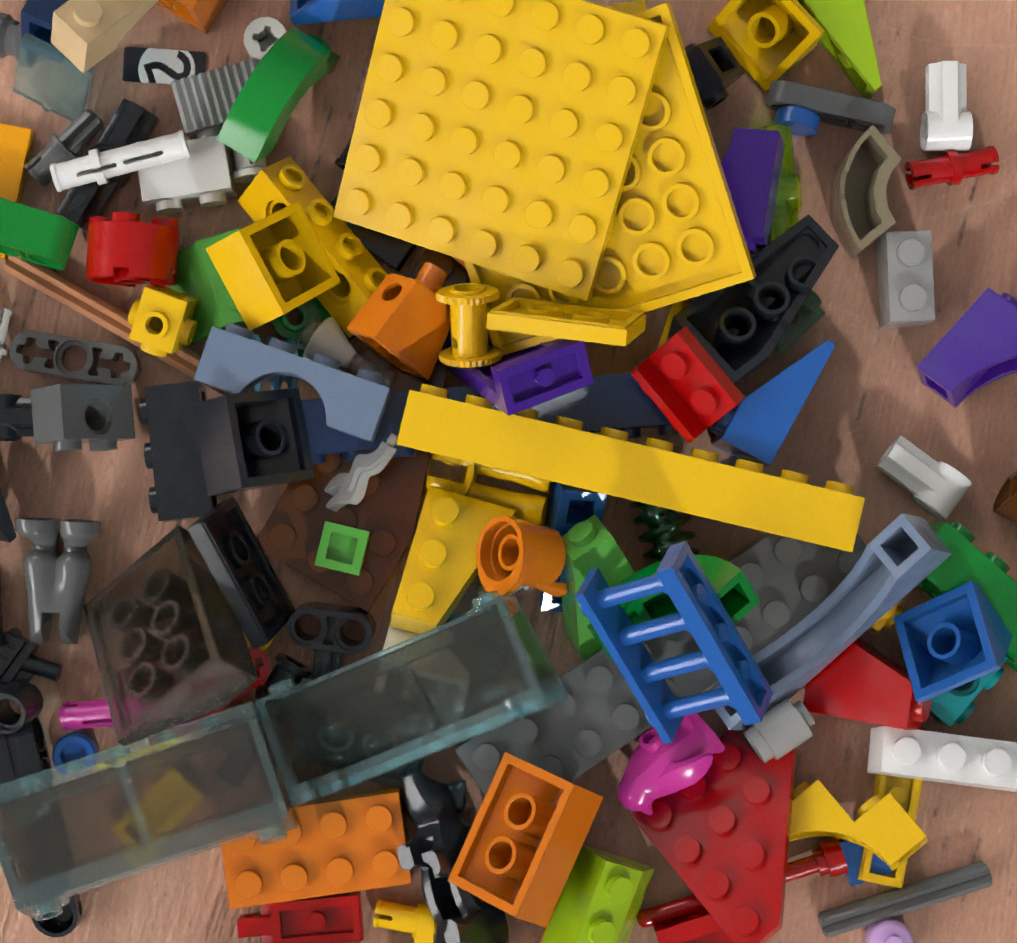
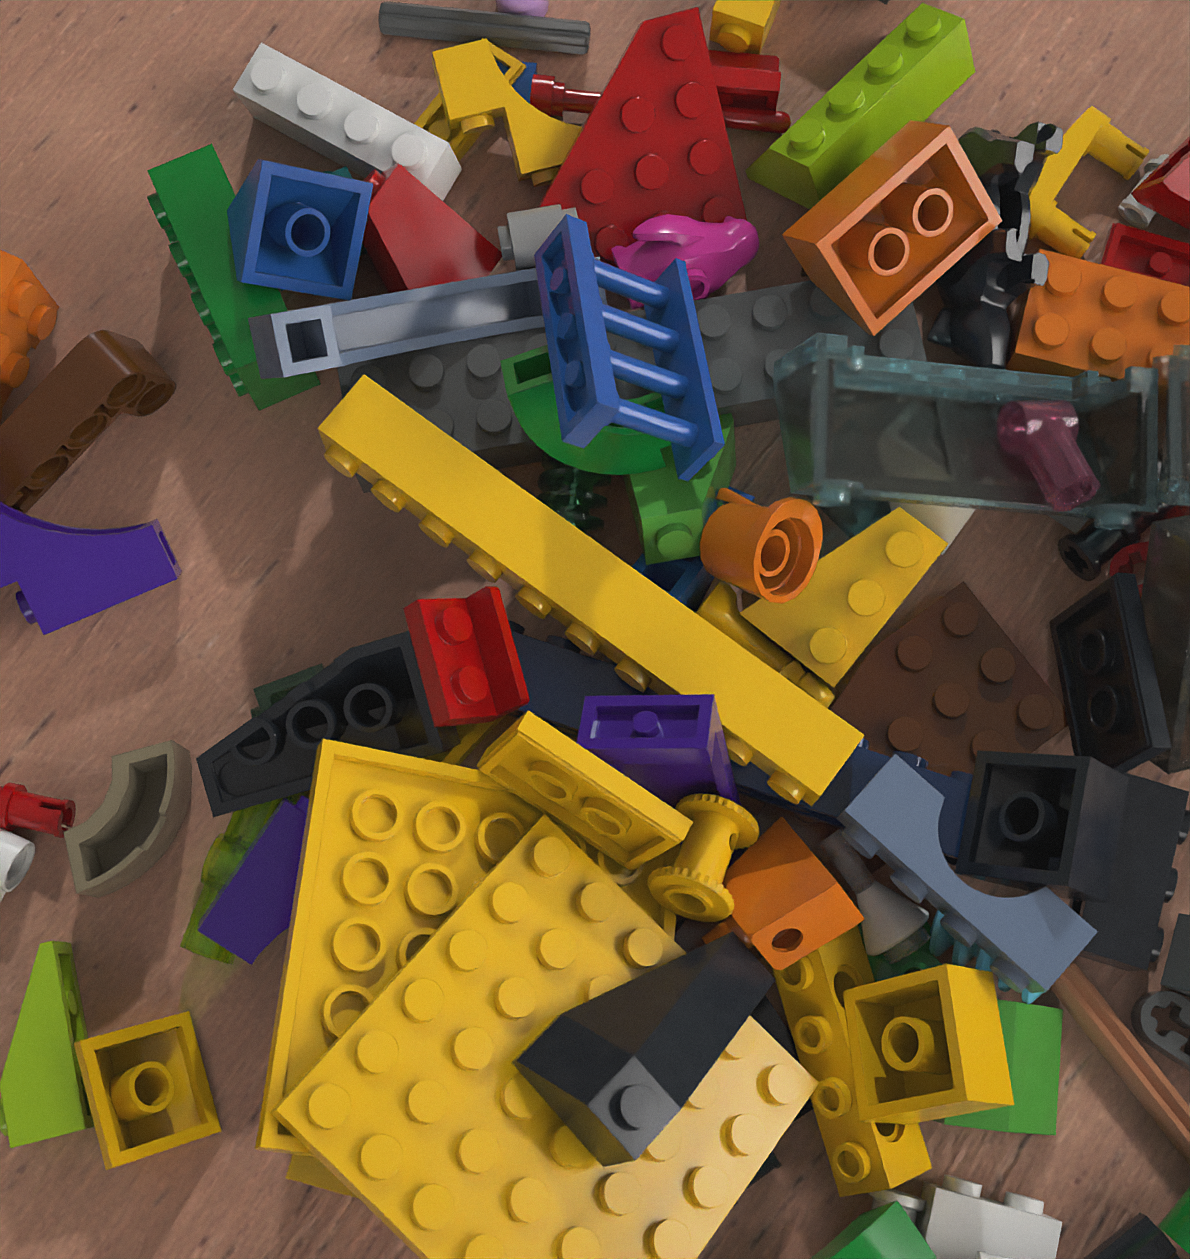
camera: 155 degrees left, 10 degrees down
(132, 251) = (1100, 1158): red brick -> none
(166, 306) = (1093, 1046): yellow brick -> none
(331, 640) = (1022, 565): black beam -> none
(342, 548) = (970, 660): bright green plate -> none
(351, 486) = (925, 730): light grey hair -> none
(353, 728) = (1047, 440): none -> clear pink piece
(455, 176) = (642, 1049): none -> black wedge
(713, 70) = (239, 1062): black brick -> none
(764, 417) = (363, 600): blue slope -> none
(801, 119) = (165, 951): blue tile -> none
(833, 106) = (118, 950): dark grey beam -> none
(905, 279) = (137, 689): light grey brick -> none
(934, 484) = (231, 448): white piece -> none

